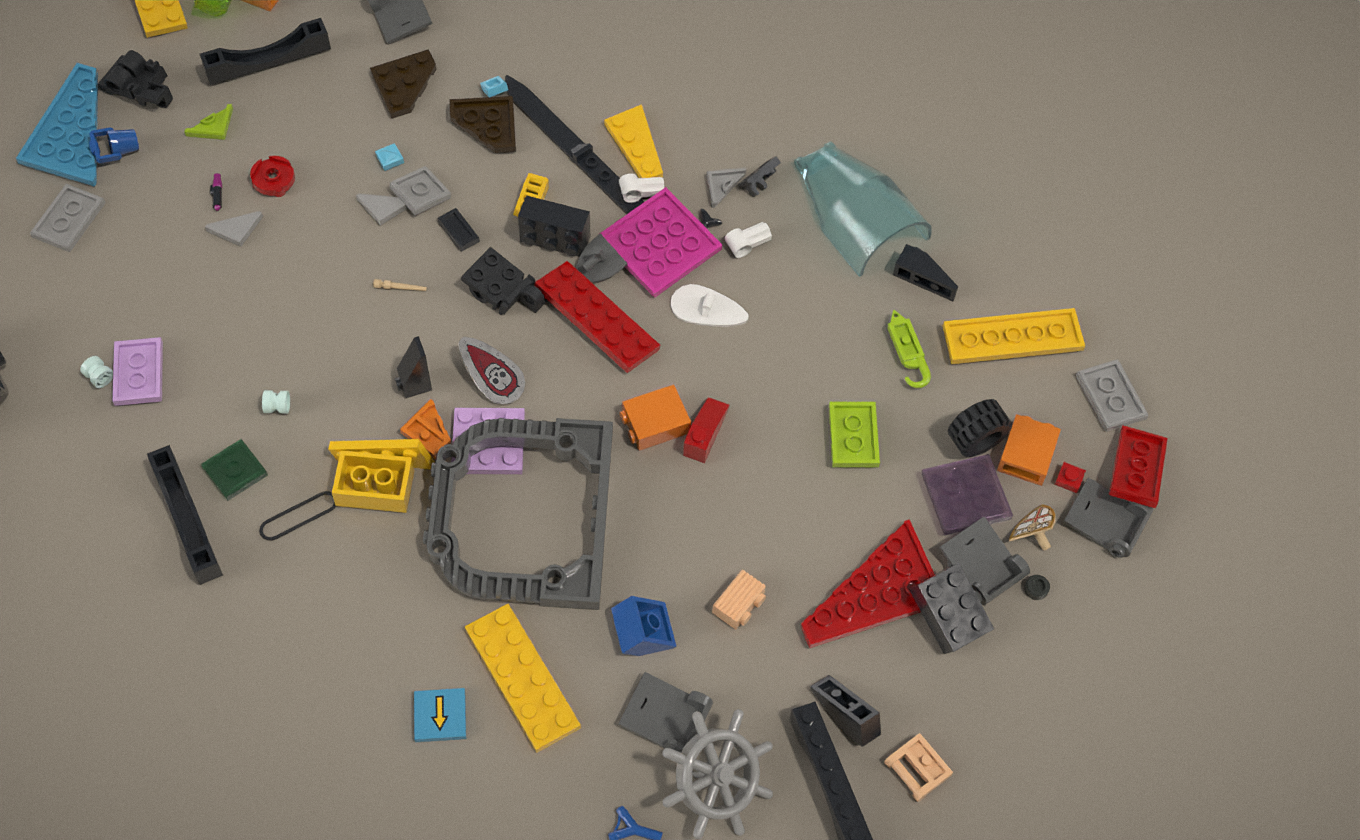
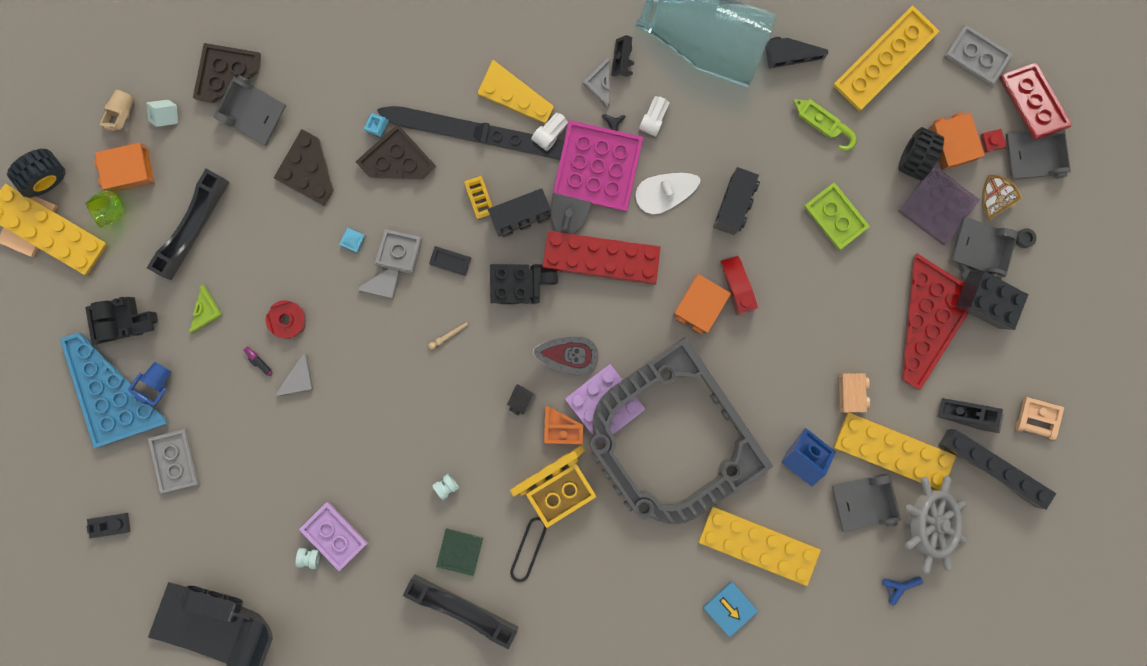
camera: 35 degrees left, 25 degrees up
(736, 686) = (893, 450): none -> yellow plate
(763, 349) = (737, 201): none -> black brick

